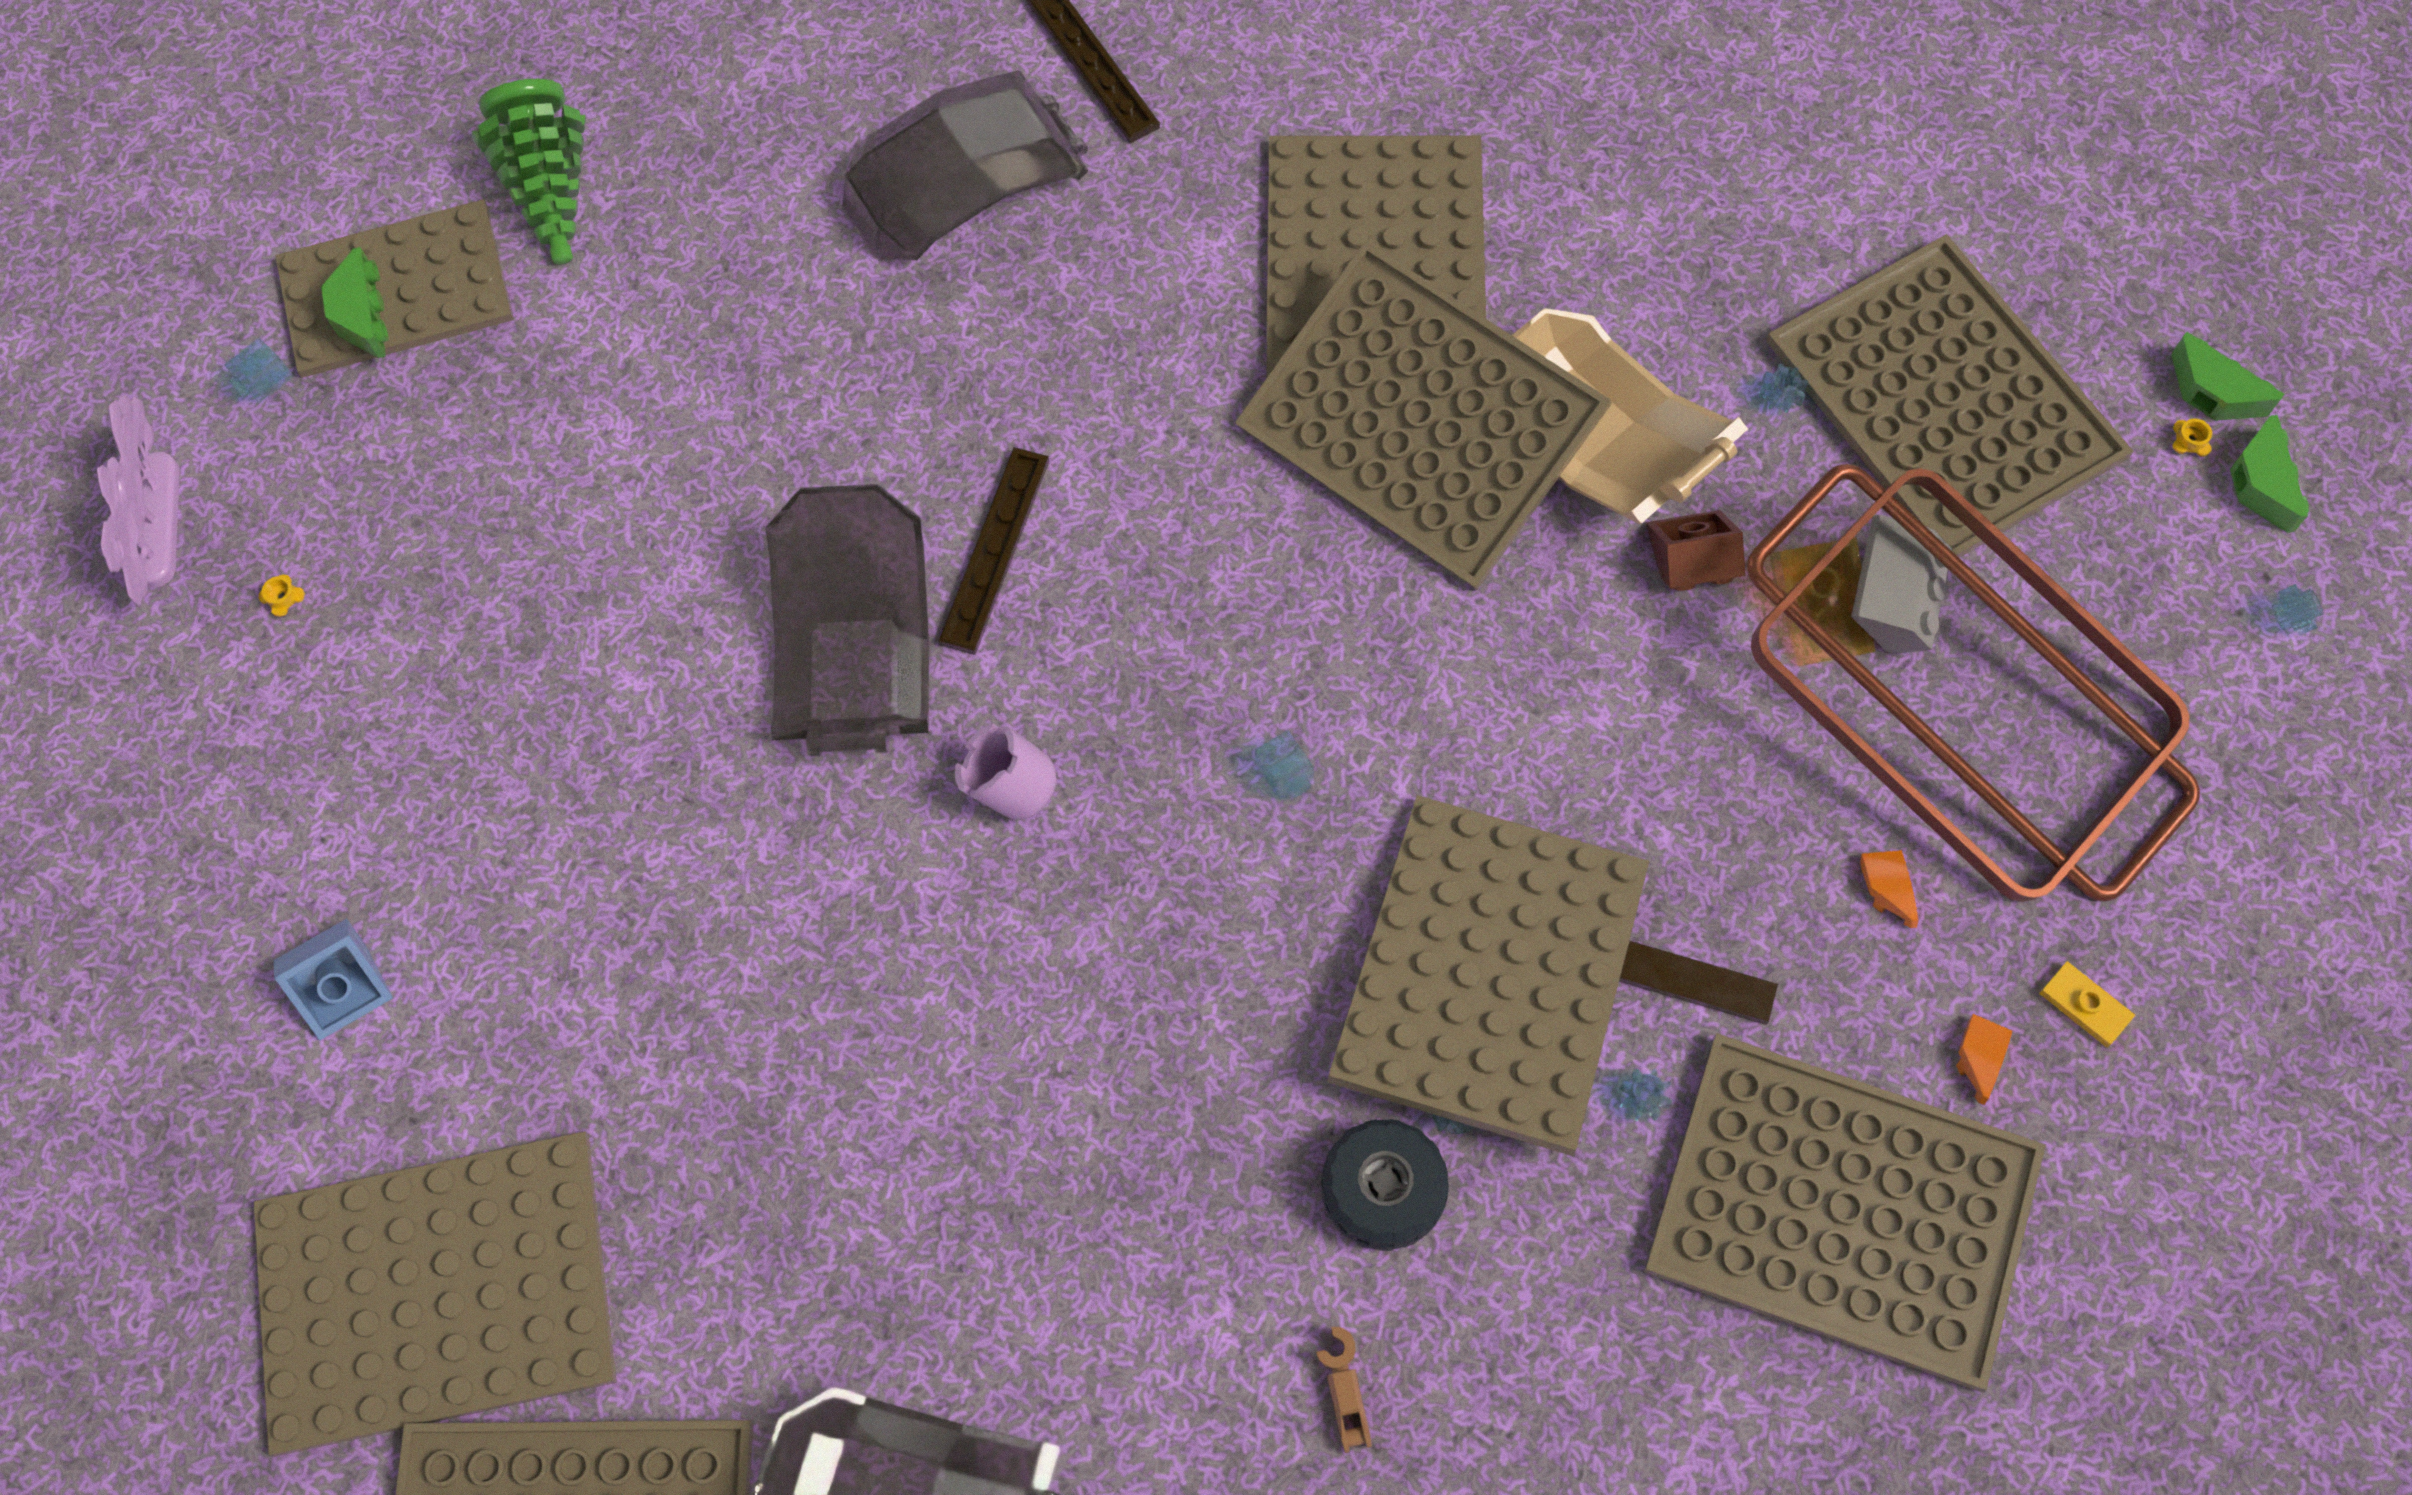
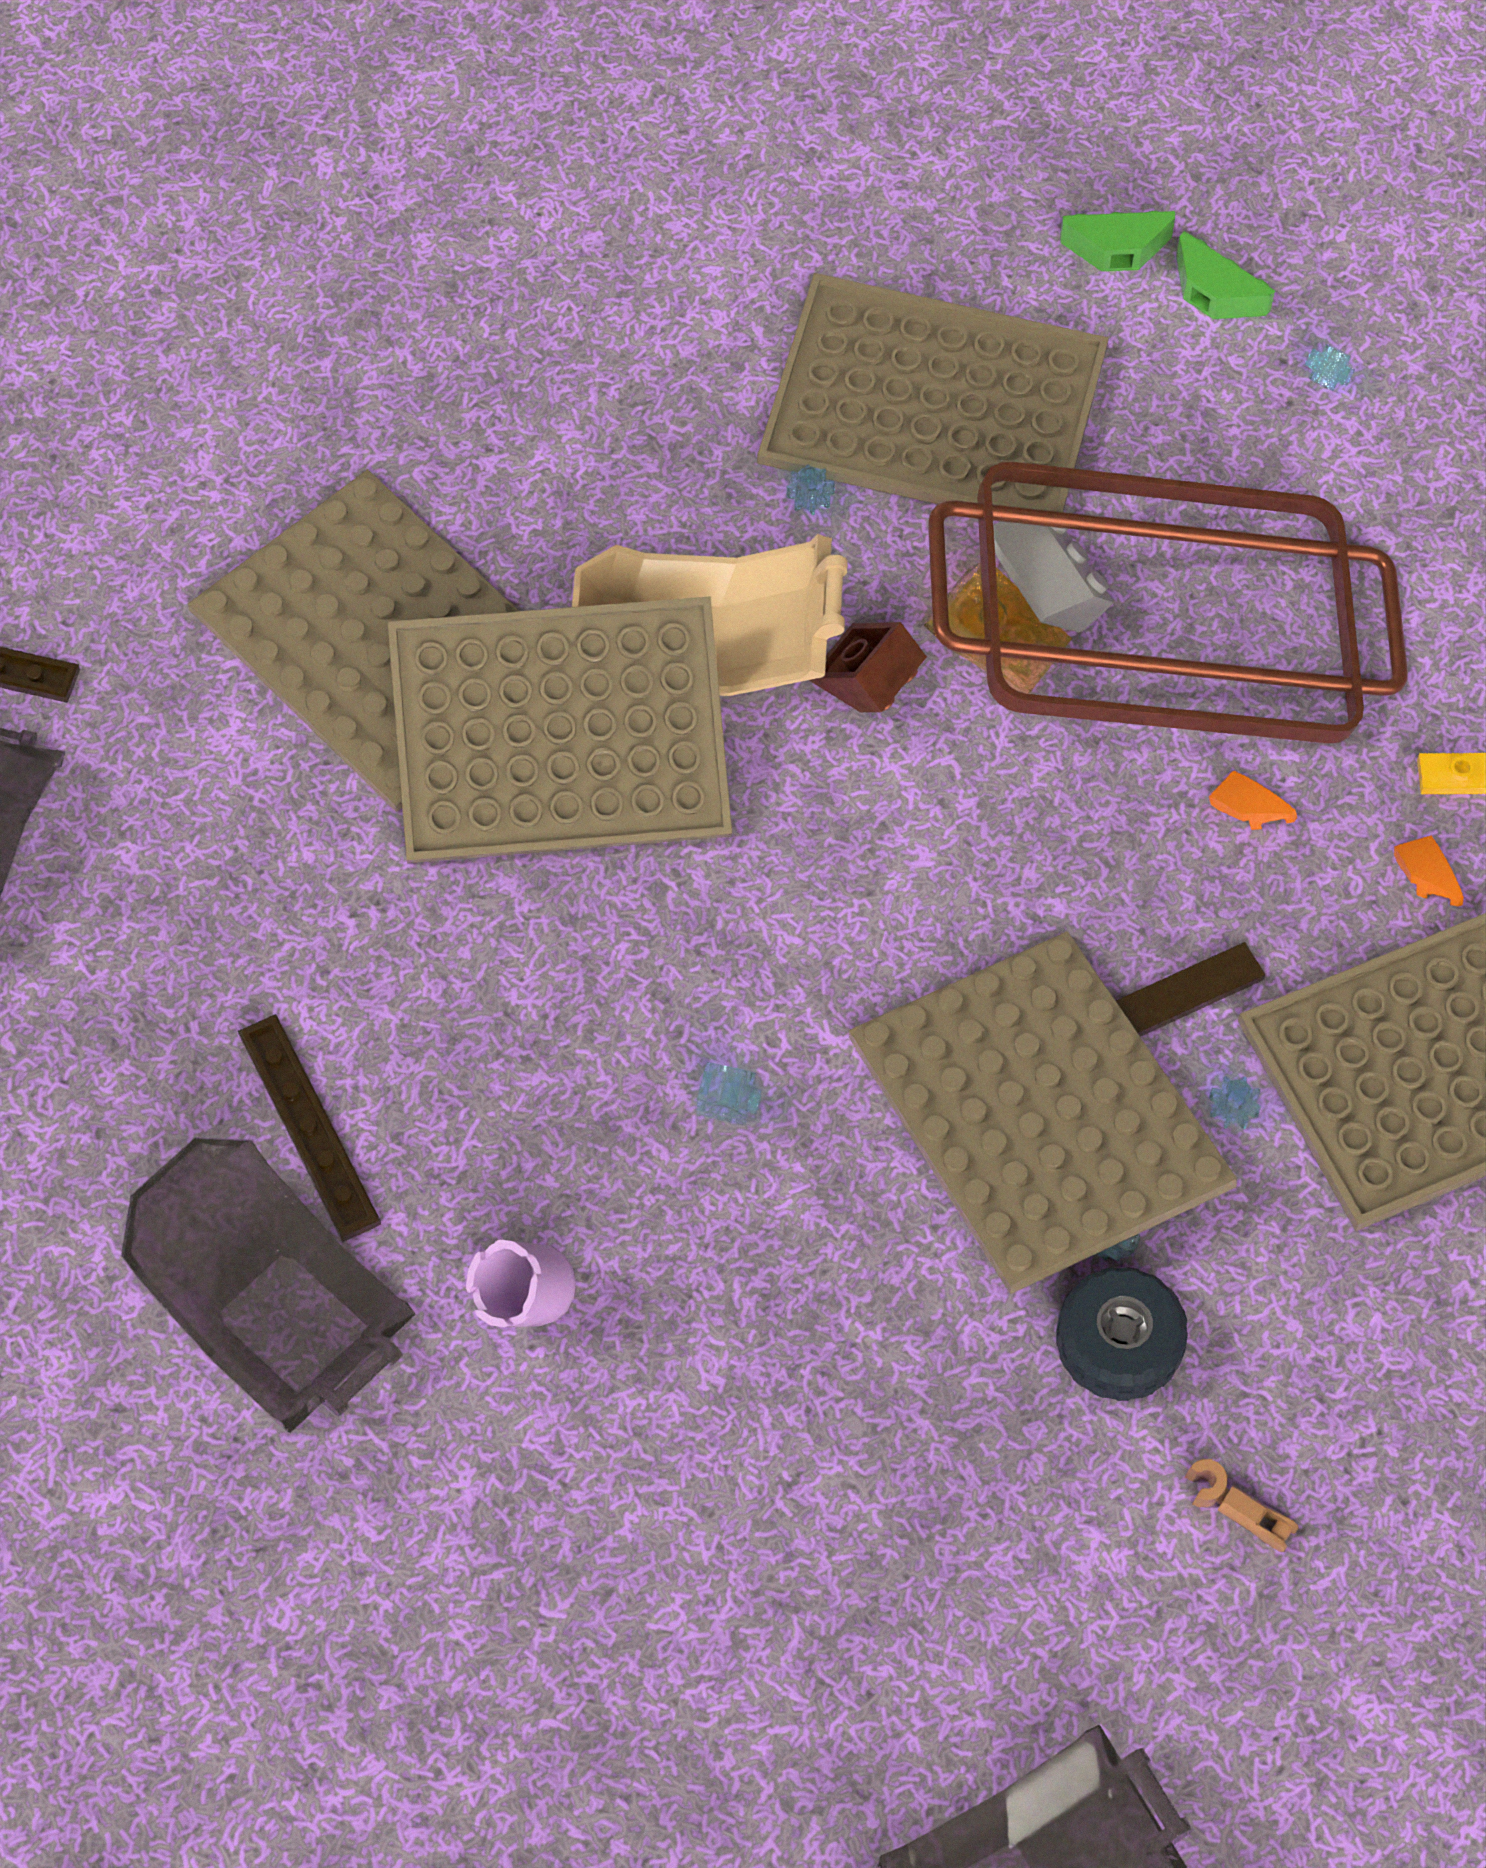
camera: 50 degrees left, 5 degrees down
(2197, 429) = (1137, 285): yellow plate -> none

